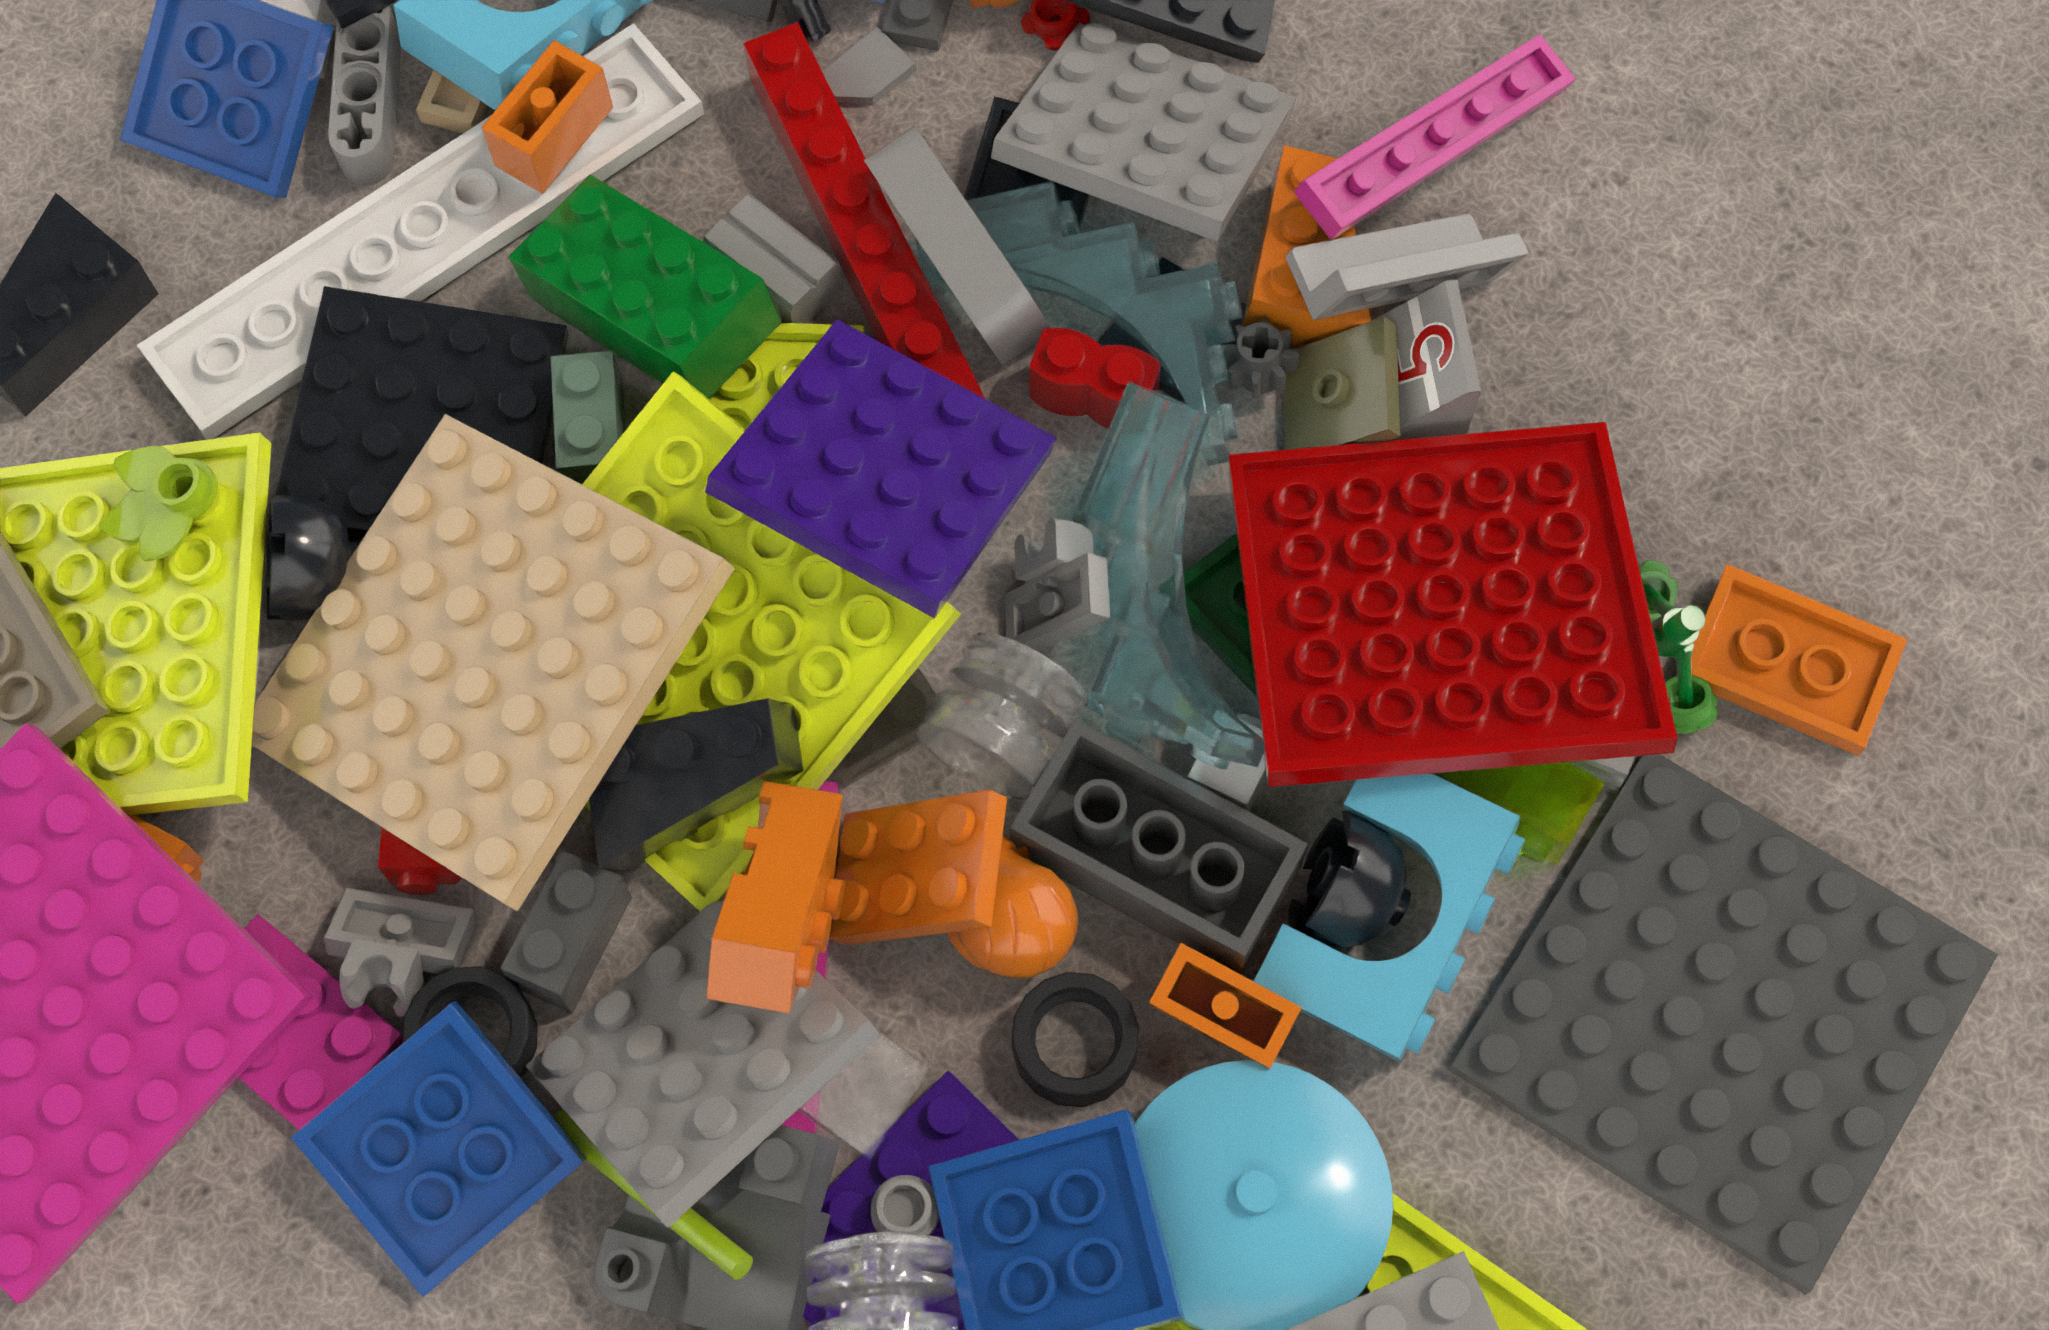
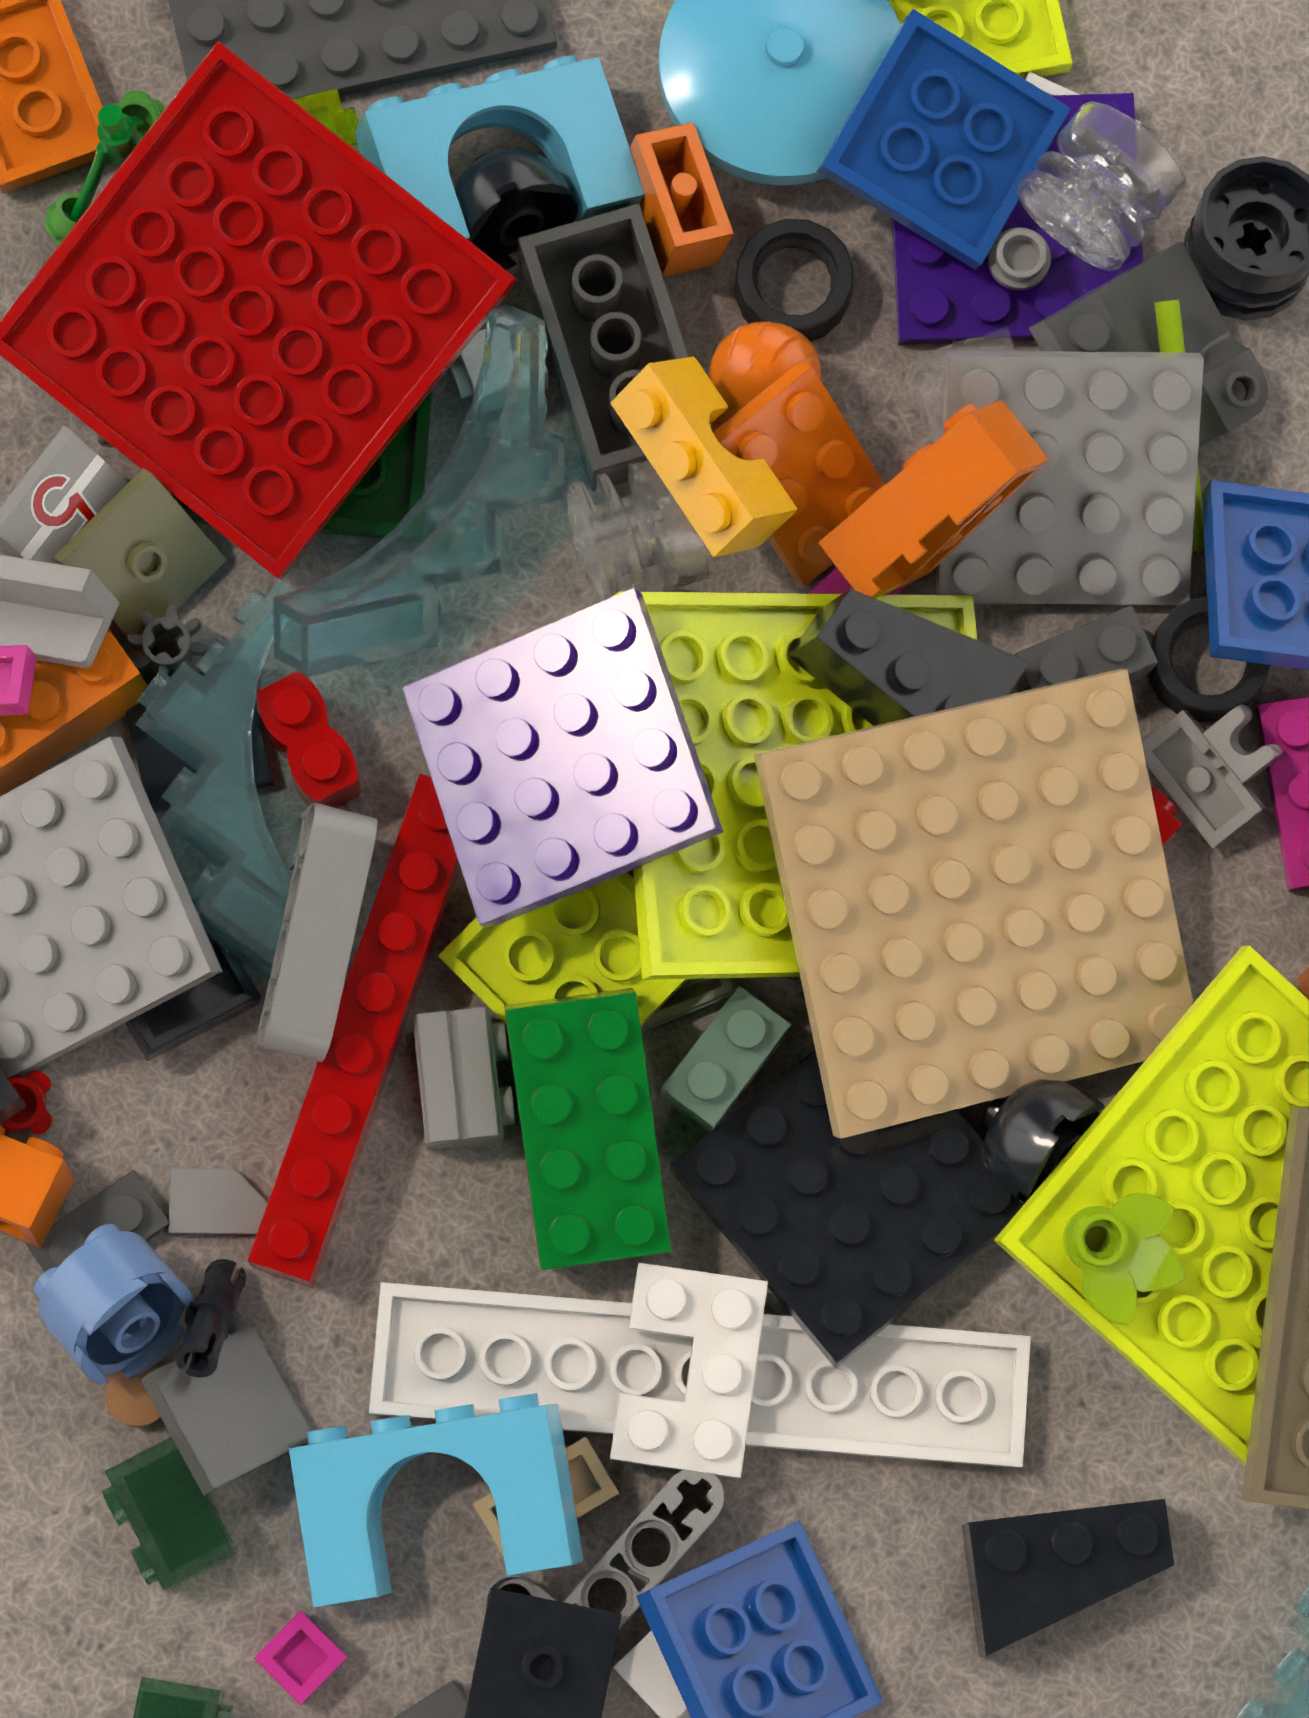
camera: 145 degrees left, 10 degrees up
(388, 191) = (712, 1423): none -> white plate
(548, 116) = (533, 1347): orange brick -> none
(1044, 772) = (725, 498): none -> yellow arch
(1062, 586) = (507, 592): light grey plate -> none

